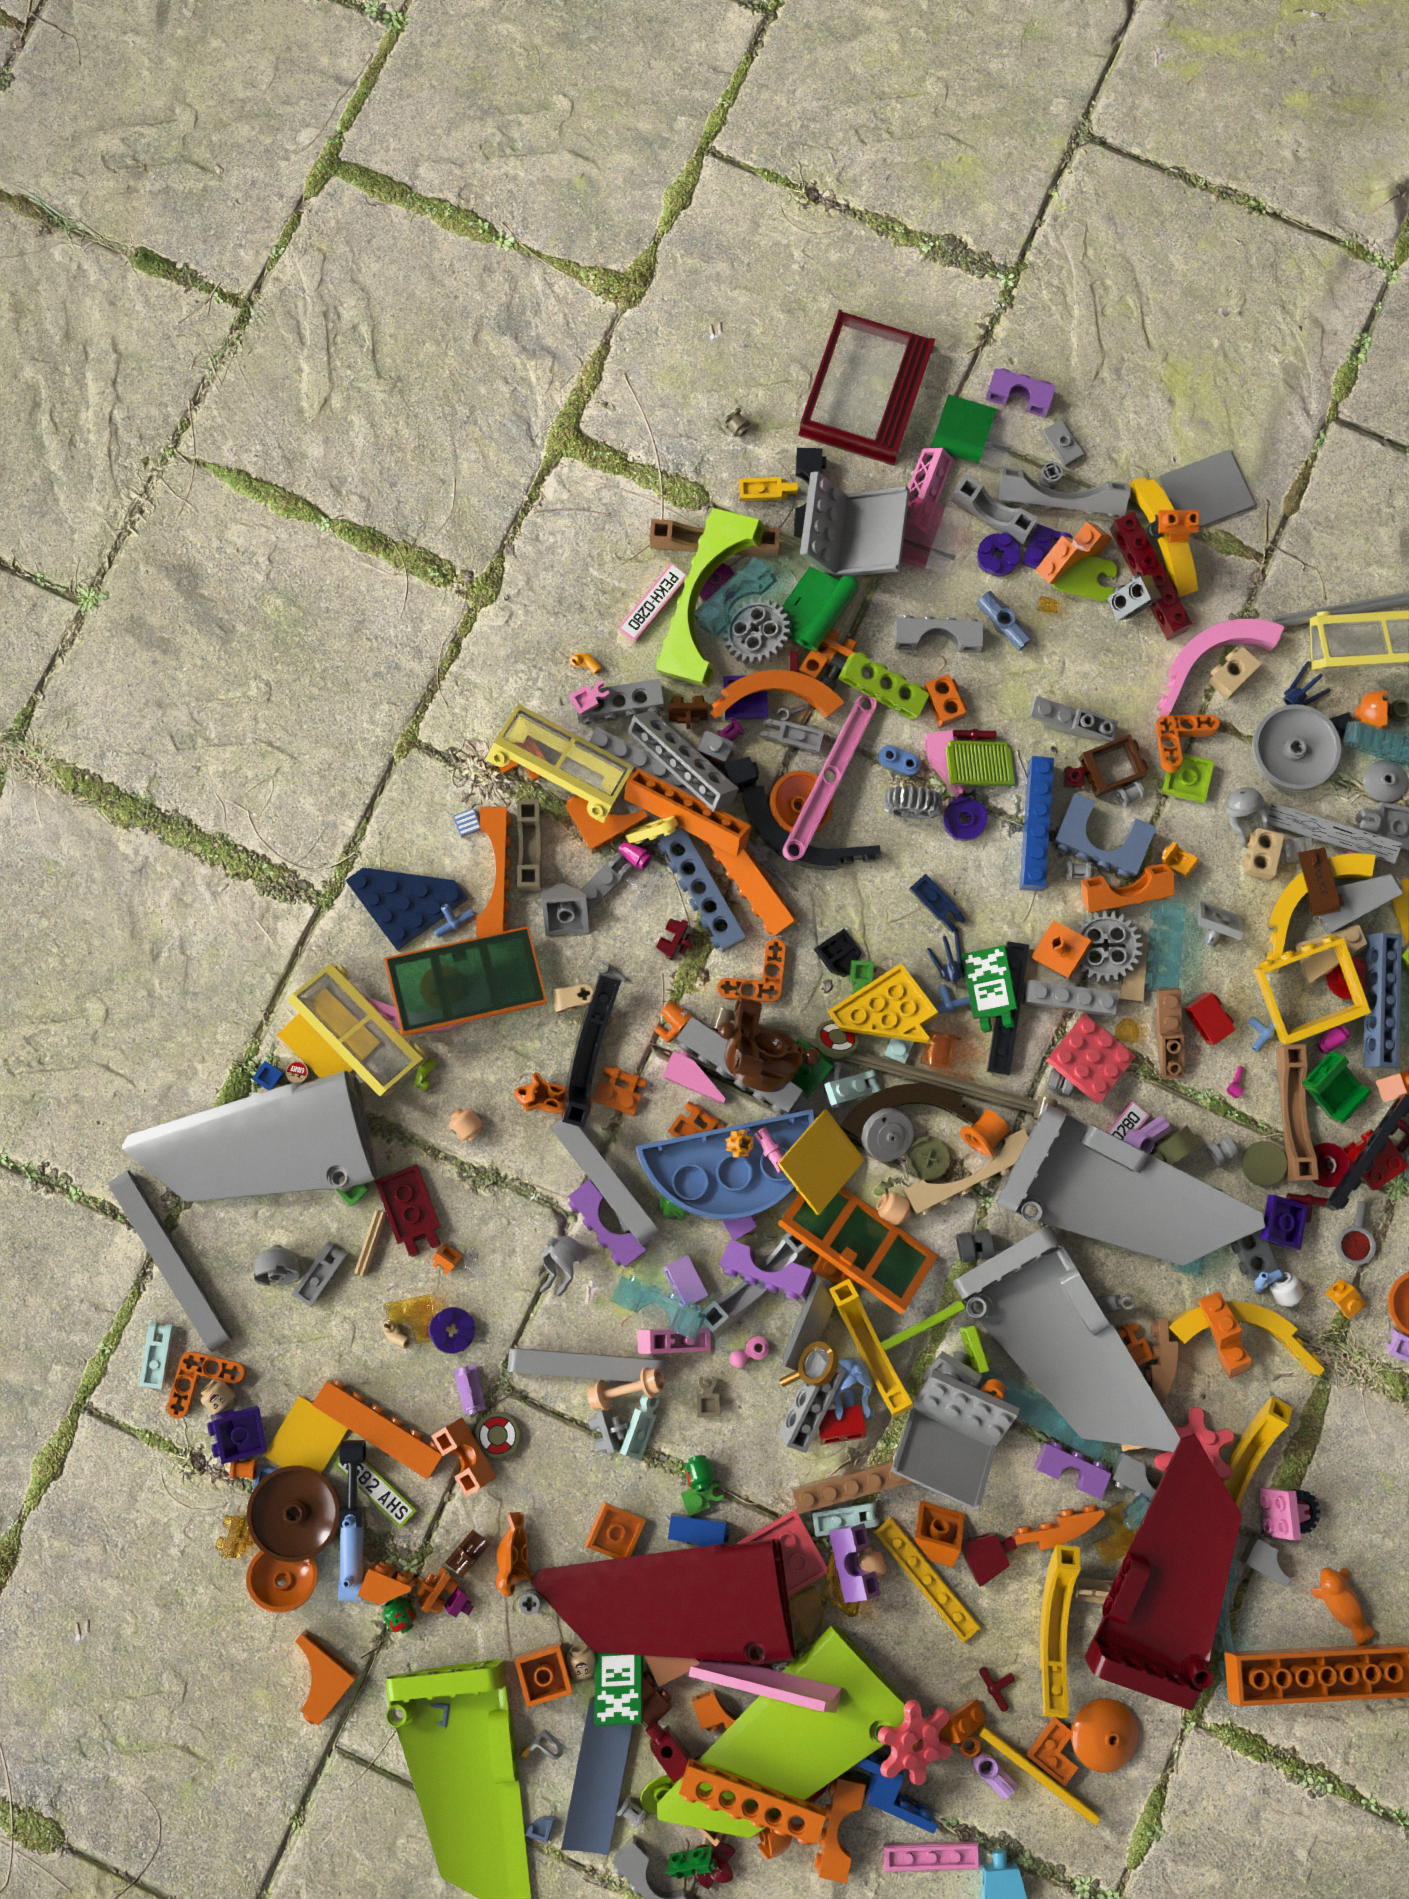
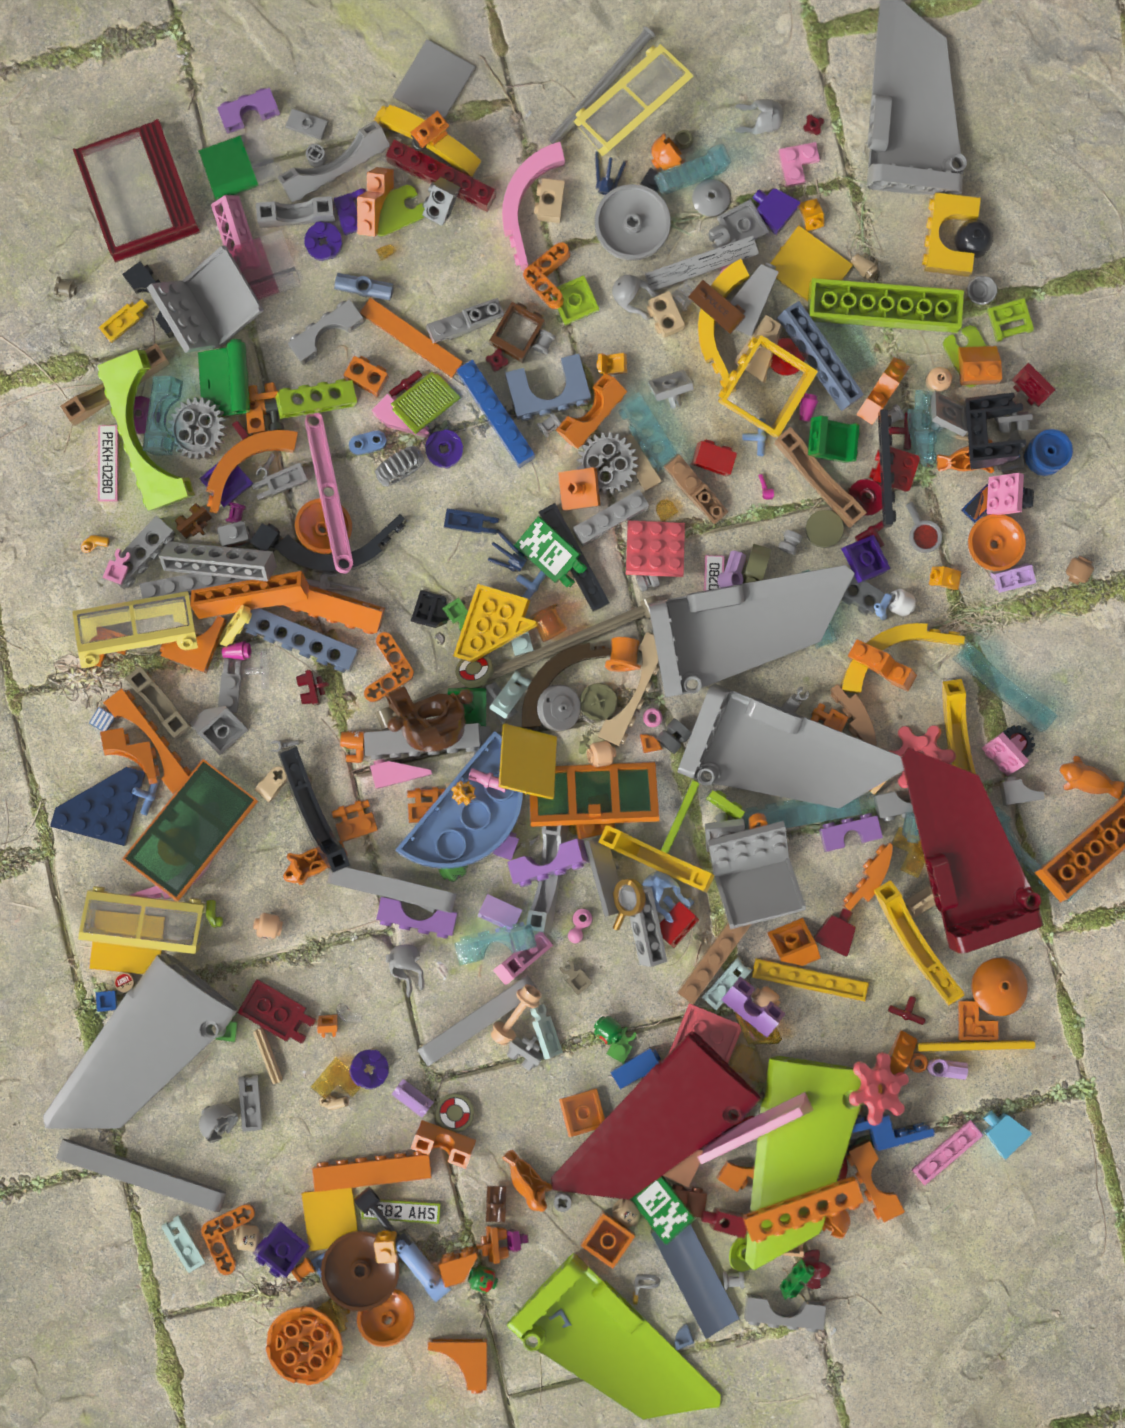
camera: 40 degrees left, 5 degrees up
(167, 1545) = (292, 1358): none -> orange brick
(334, 1511) = (385, 1247): none -> light orange bracket
(464, 853) = (118, 743): none -> orange arch
(946, 1234) = (649, 743): none -> orange tile
(974, 1212) = (657, 713): none -> bright pink plate
(1011, 698) = (411, 337): none -> orange tile
(1315, 1405) = (1025, 705): none -> clear light blue arch

